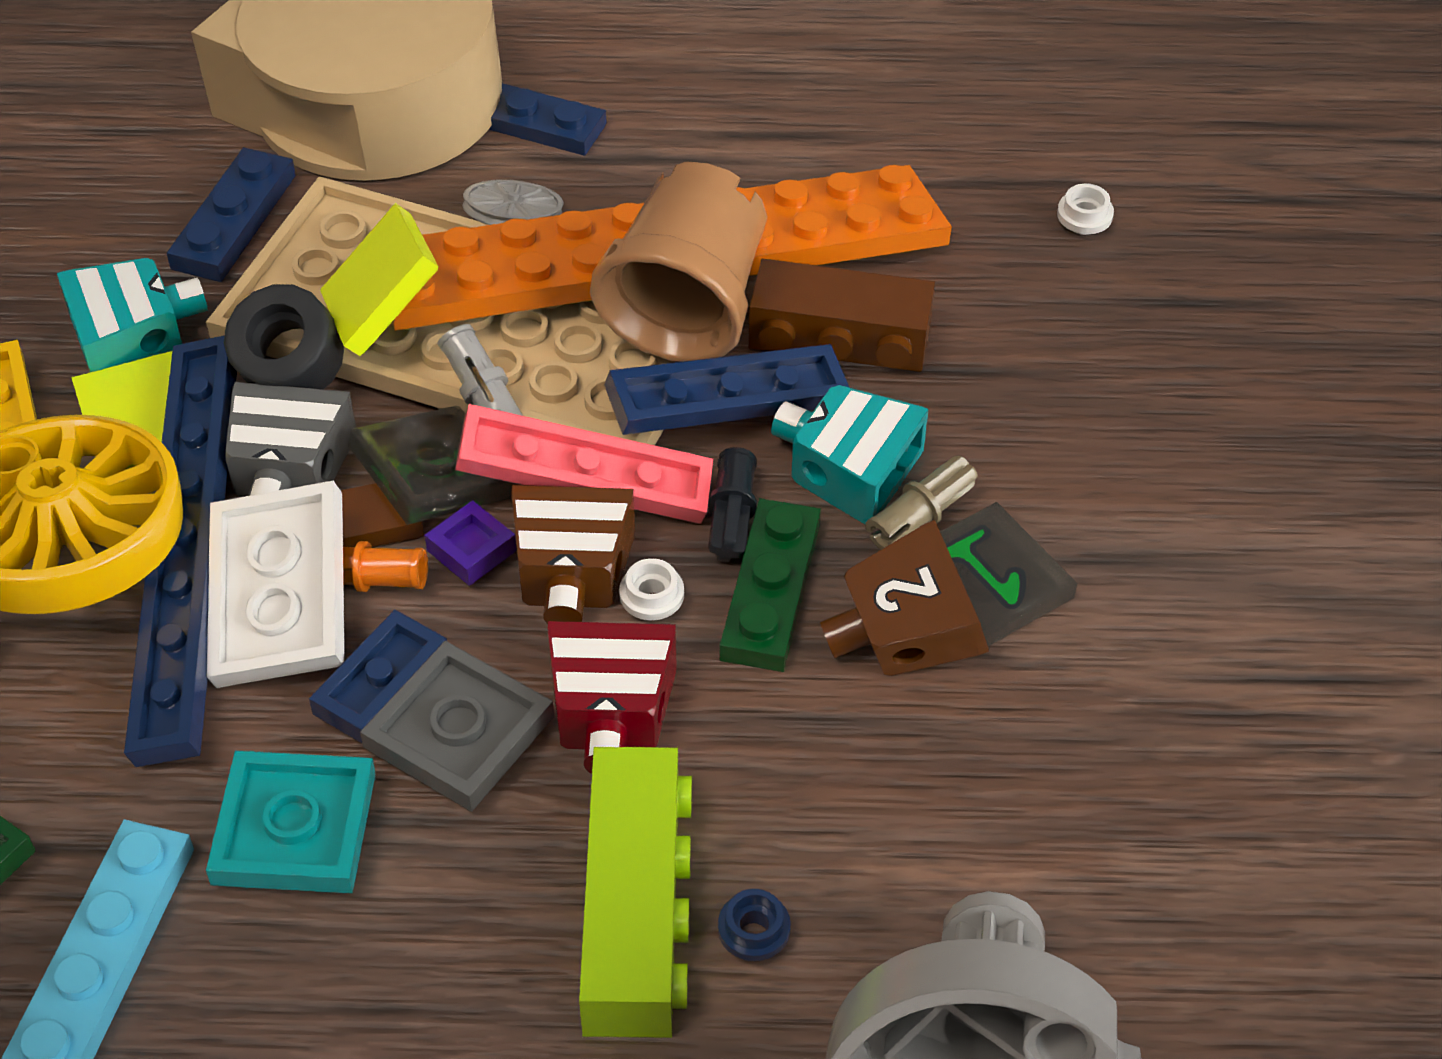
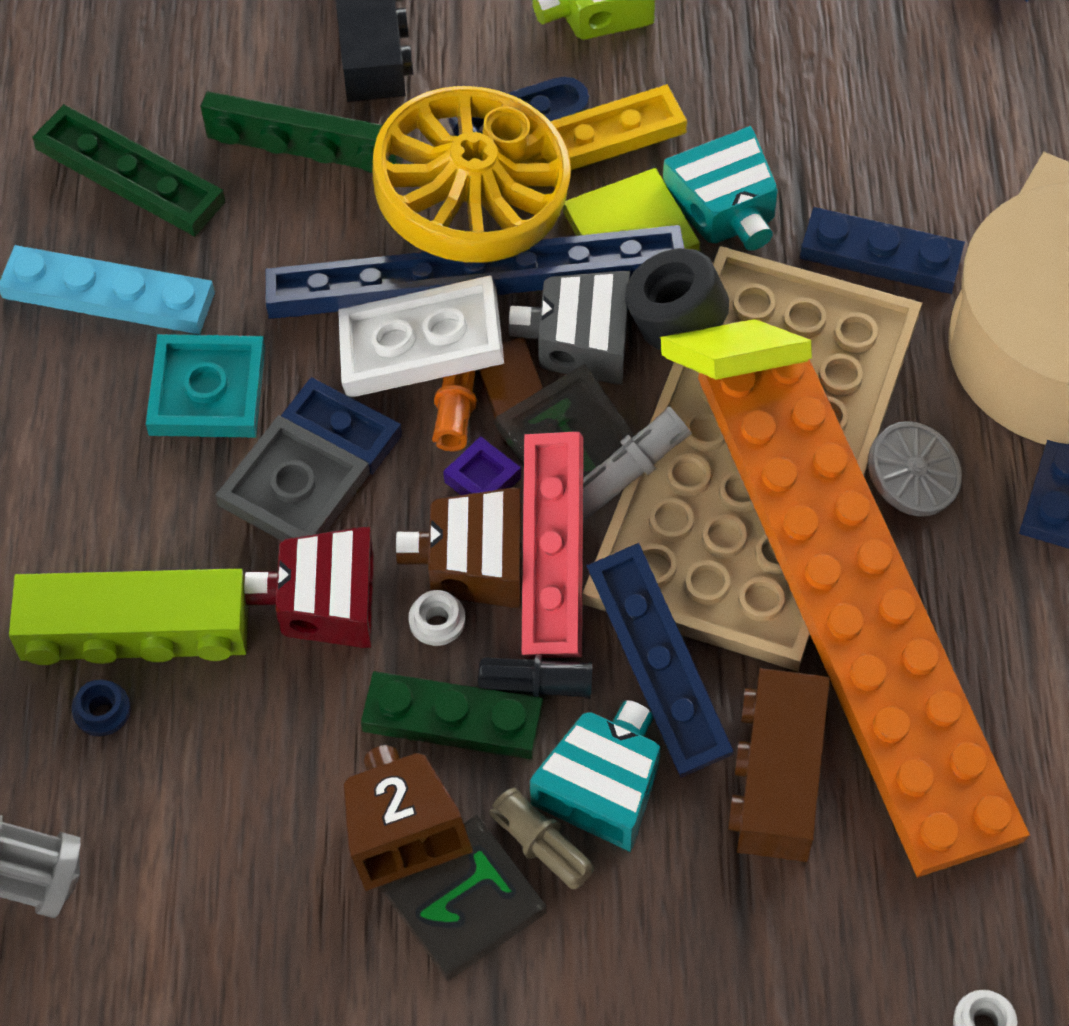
camera: 90 degrees right, 10 degrees up
(683, 266) = (757, 585): medium nougat piece -> none

